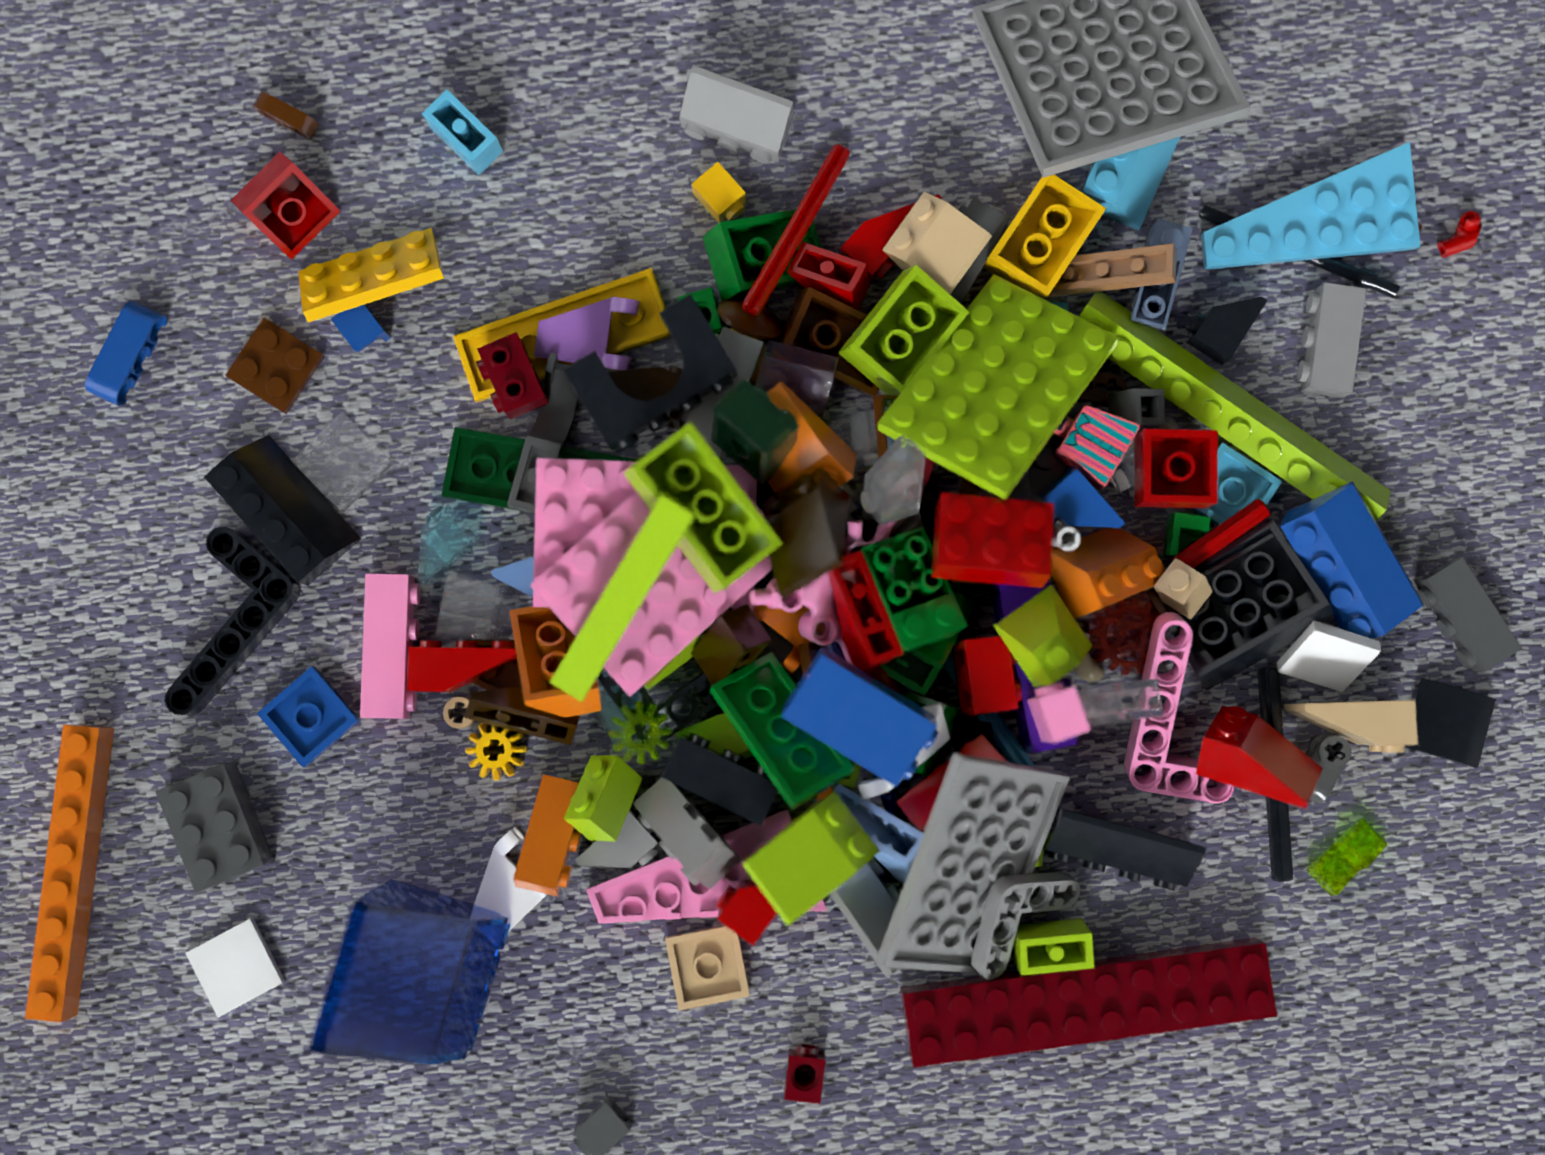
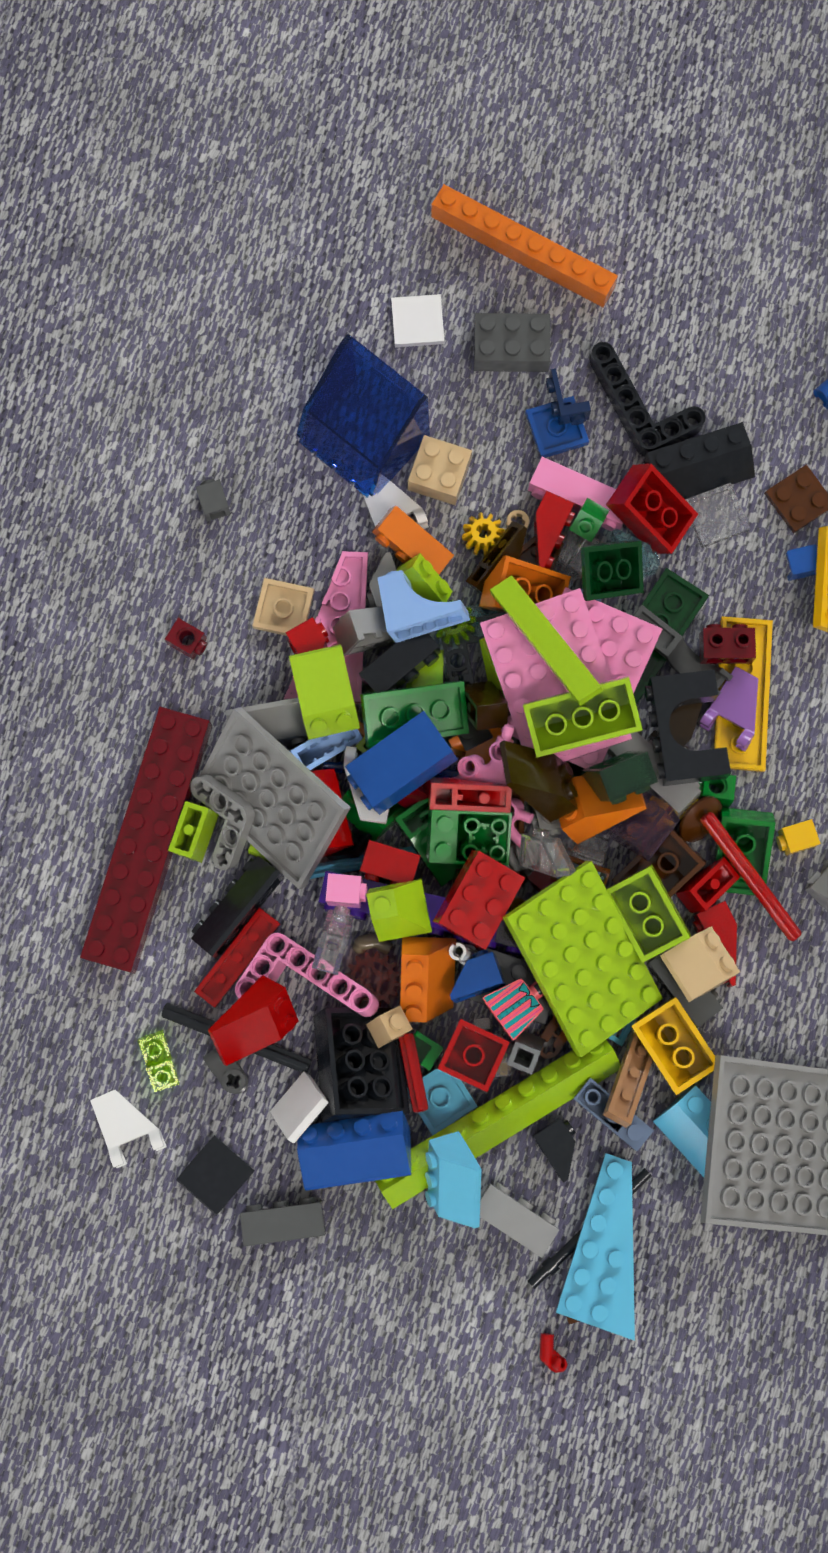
camera: 115 degrees right, 5 degrees down
(283, 700) = (572, 413): none -> dark blue bracket
(372, 543) = (652, 508): none -> red brick
(422, 618) = (589, 520): none -> green brick
(433, 845) = (439, 470): none -> tan brick
(481, 558) = (612, 569): none -> dark green slope
(658, 792) = (412, 615): none -> light blue arch
(1178, 817) = (236, 958): none -> red plate
(1333, 428) = (453, 1180): none -> medium azure slope
(1379, 724) = (242, 1114): tan slope -> none
(1441, 865) = (122, 1124): none -> white flag

